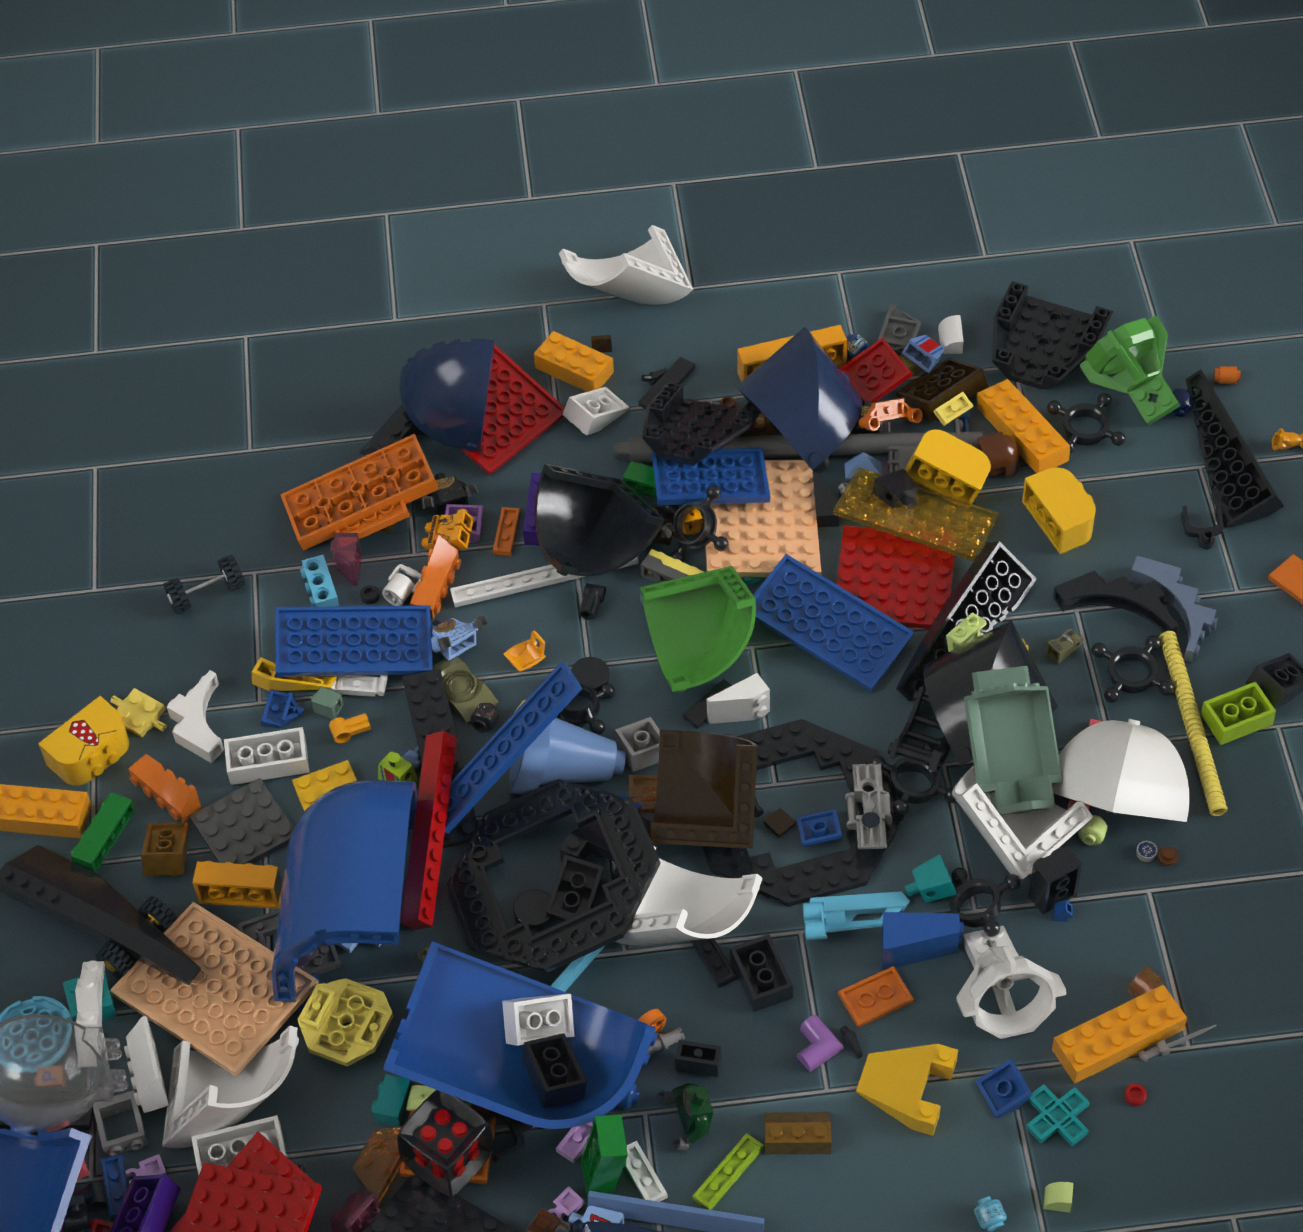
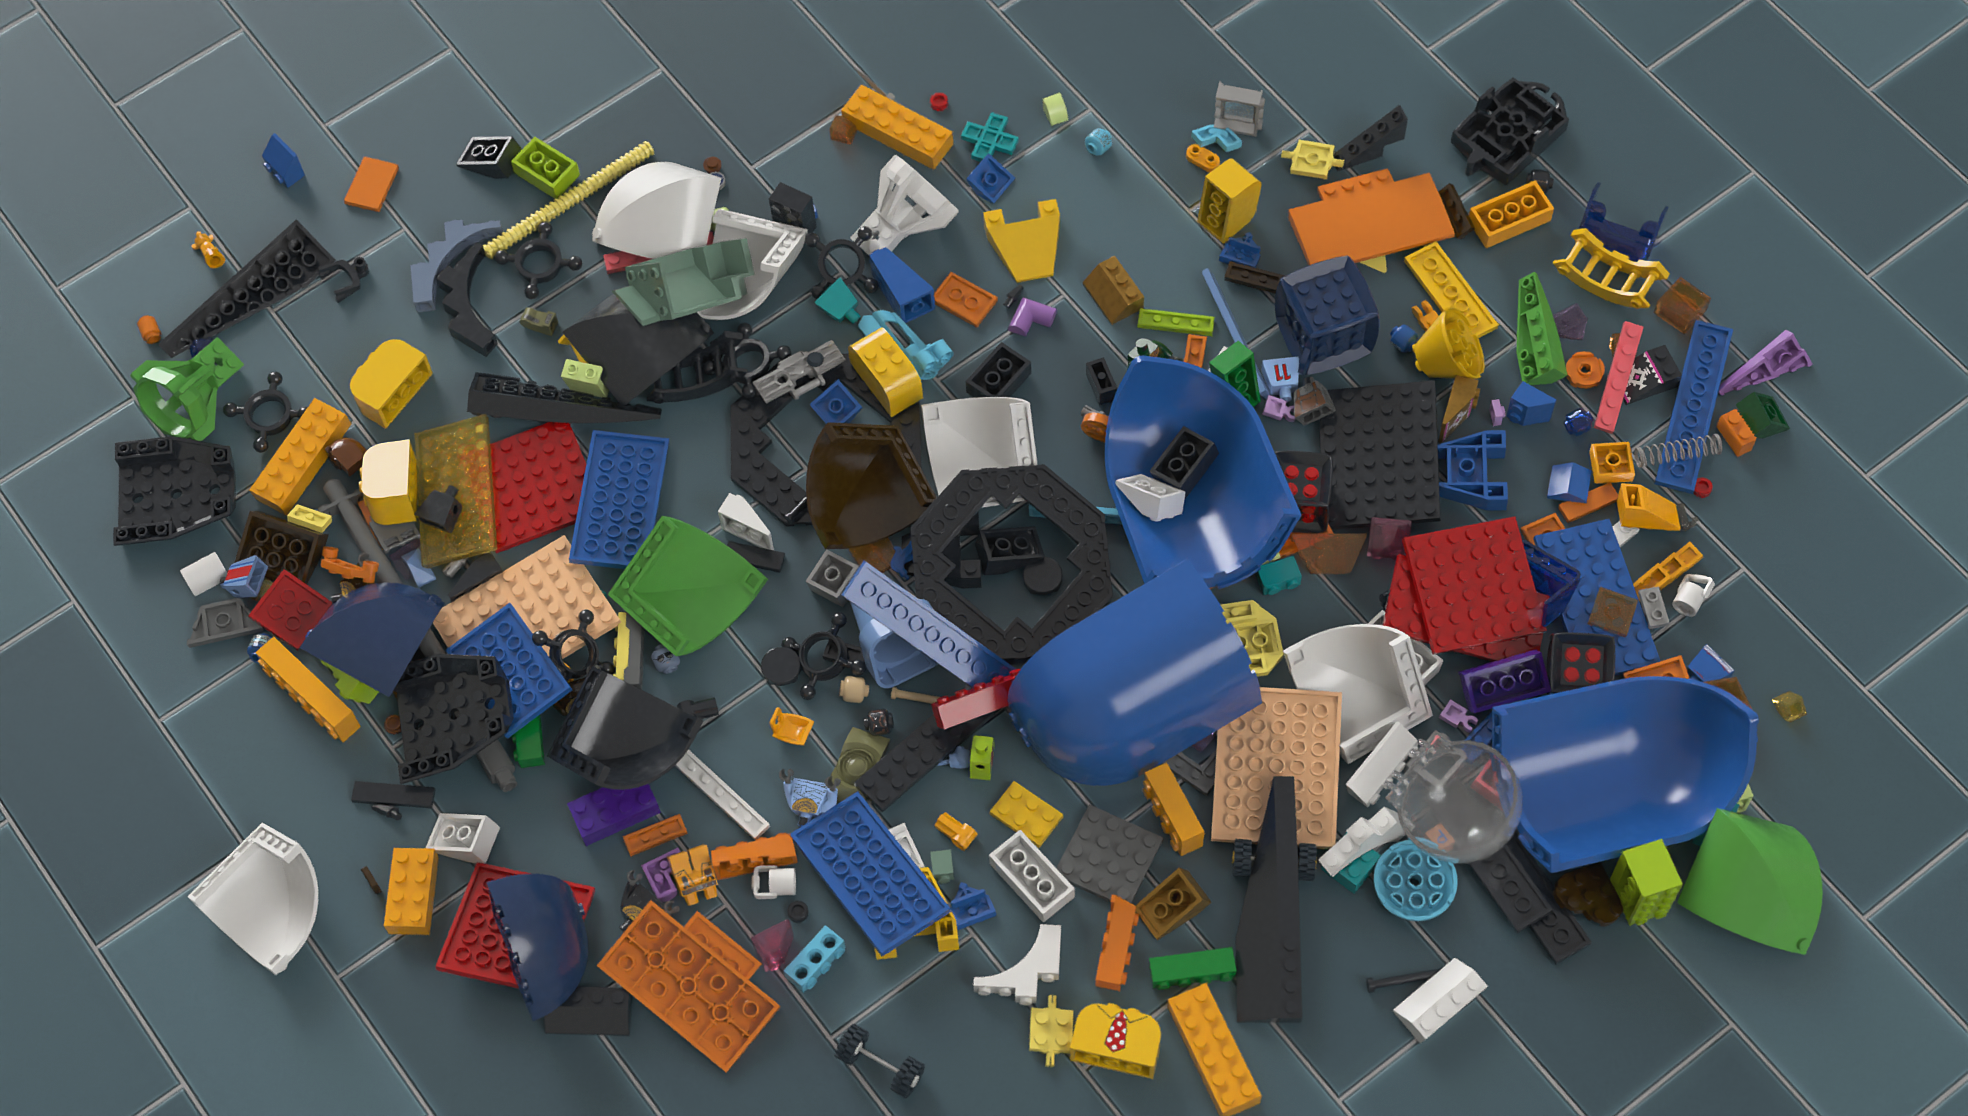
camera: 120 degrees left, 10 degrees up
(673, 1163) = (1195, 350): none -> orange tile
(821, 869) = (886, 371): none -> yellow brick

